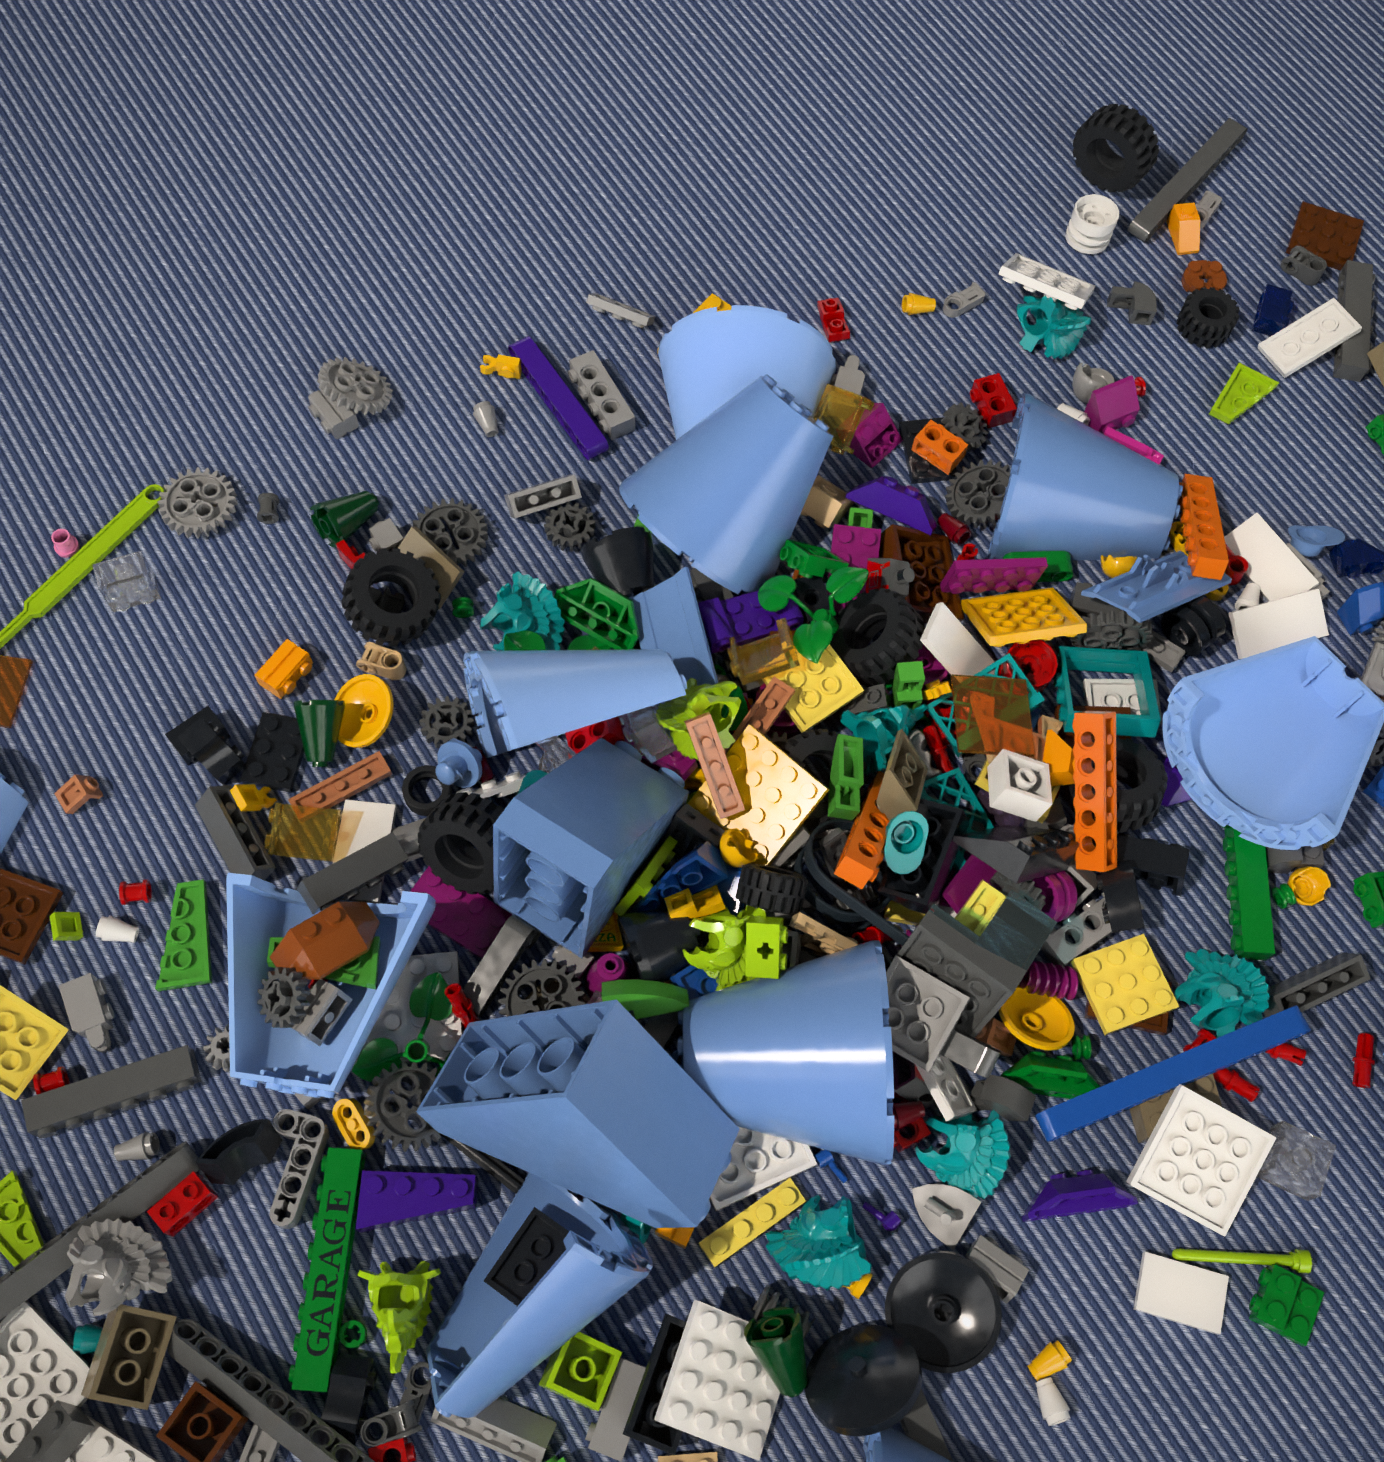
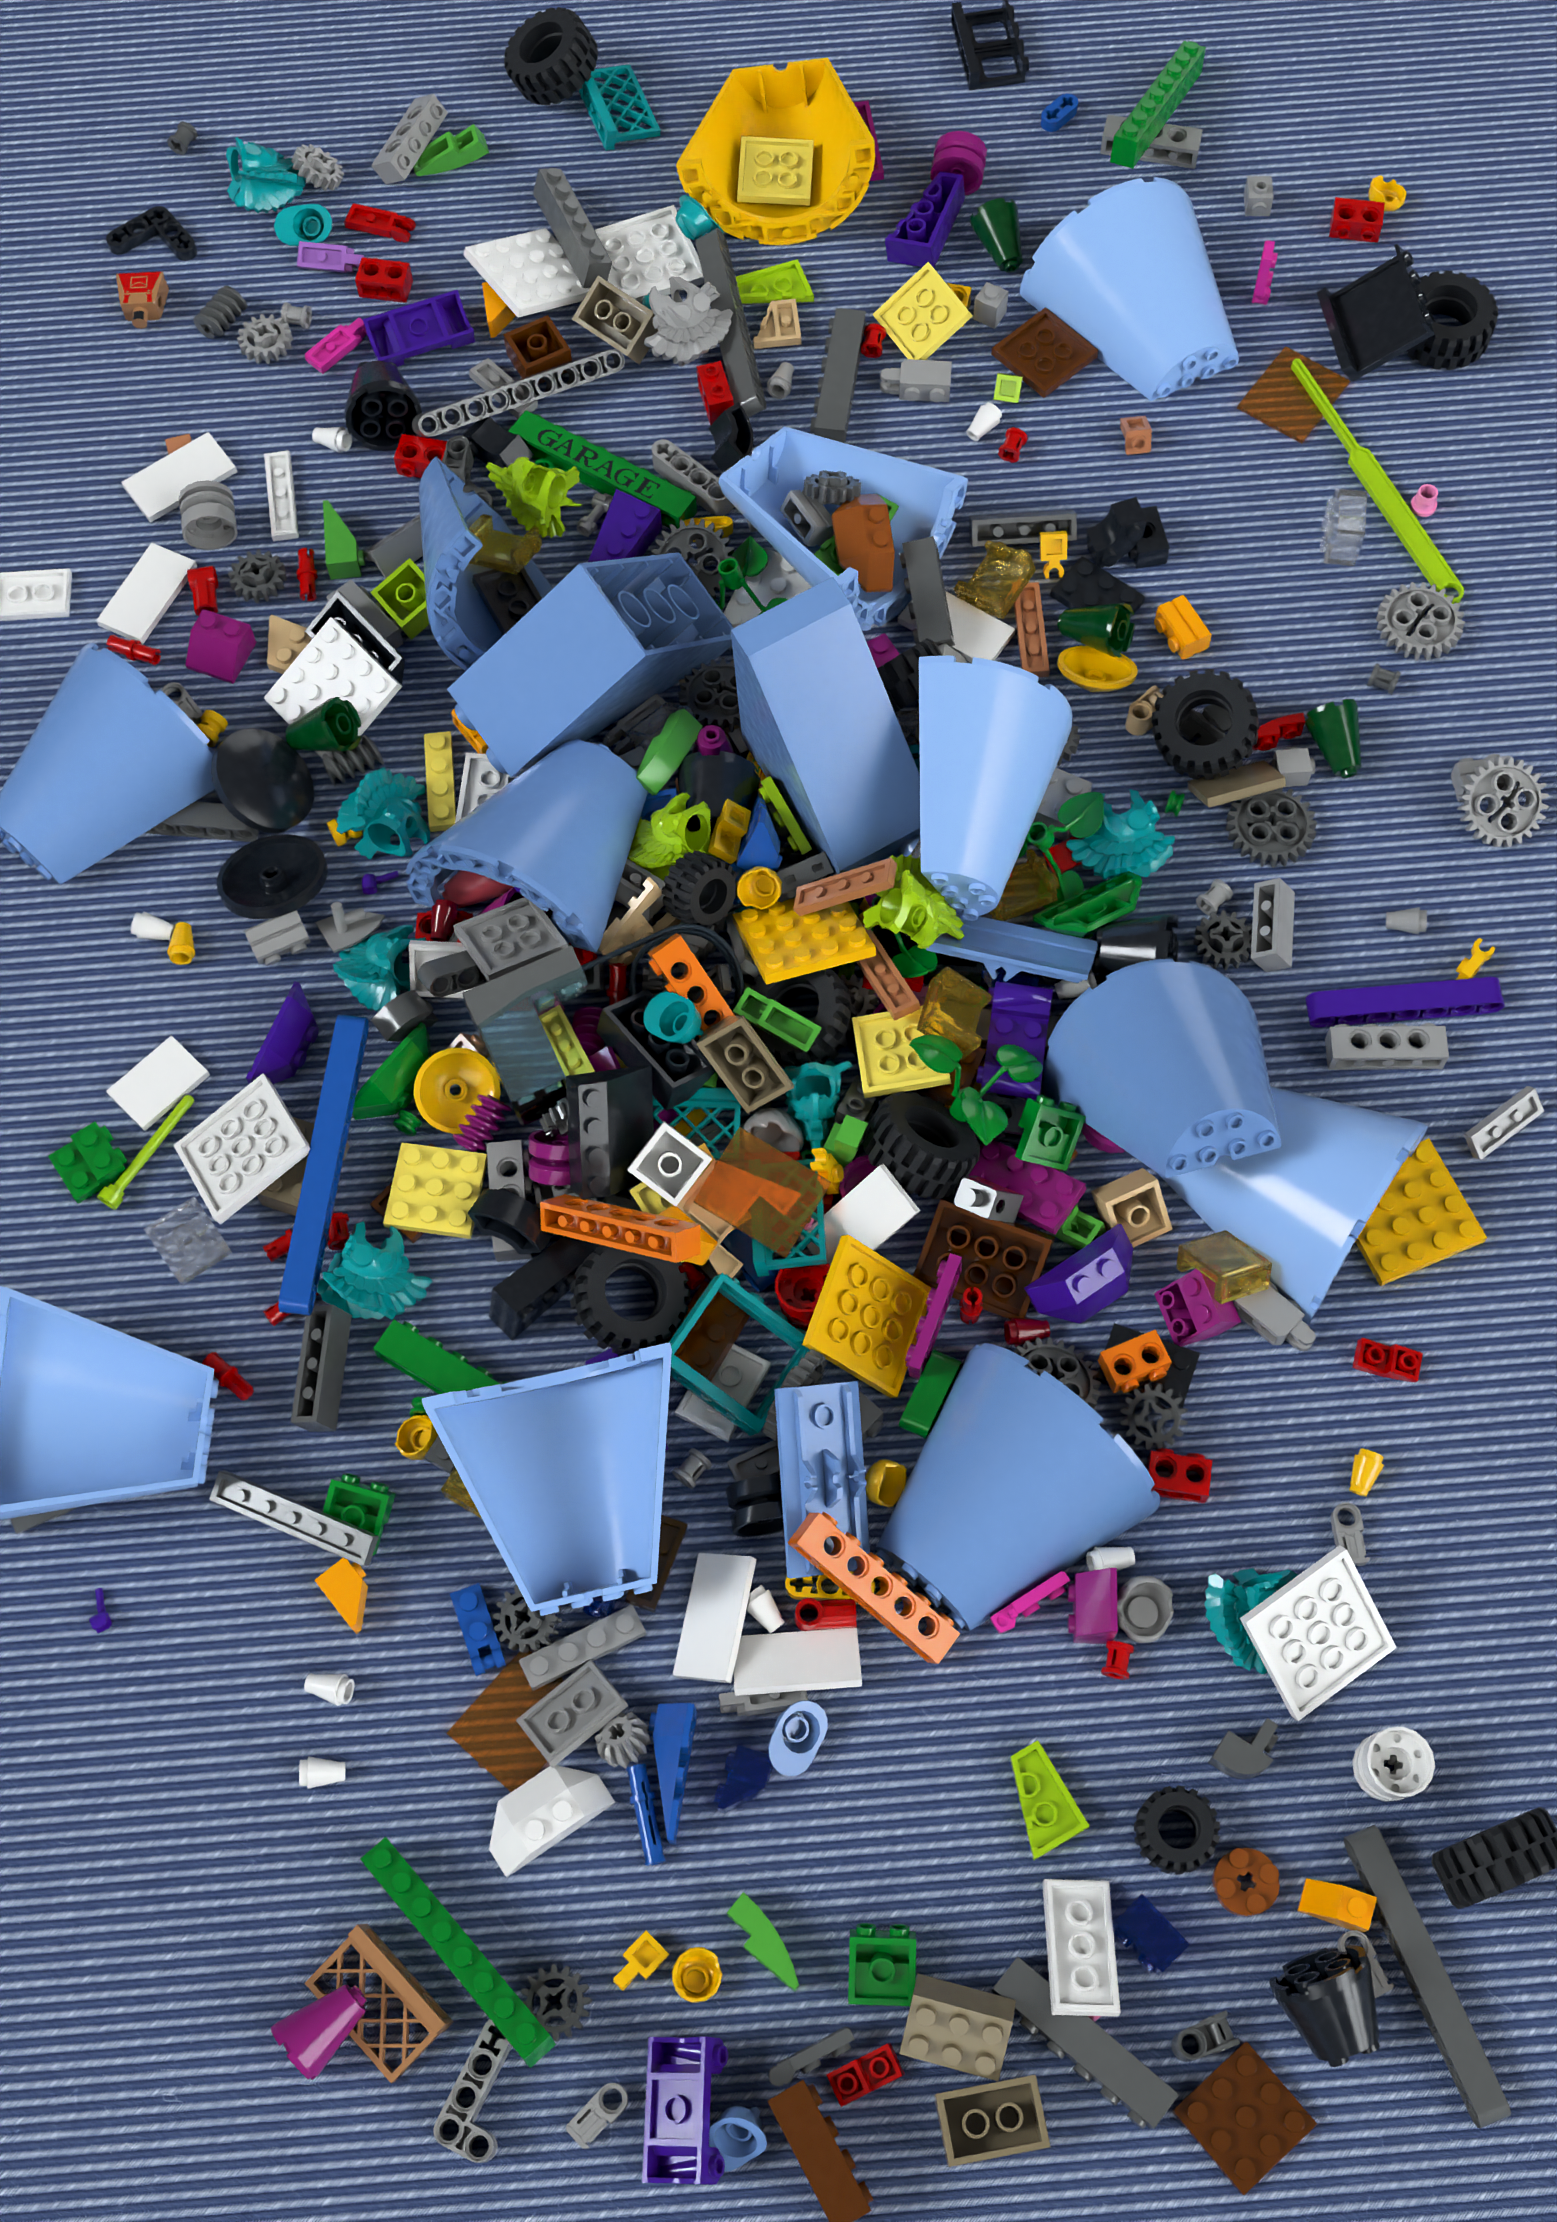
camera: 125 degrees right, 0 degrees up
(64, 1187) = (779, 326): none -> tan wing
(187, 940) = (981, 480): bright green wing -> none
(368, 1245) = (601, 504): none -> light grey bar
(477, 1306) = (501, 549): none -> clear yellow panel
(535, 548) = (1214, 897): none -> light grey bush
(758, 961) = (644, 845): lime brick -> none
(1242, 209) = (1331, 2002): none -> black cone

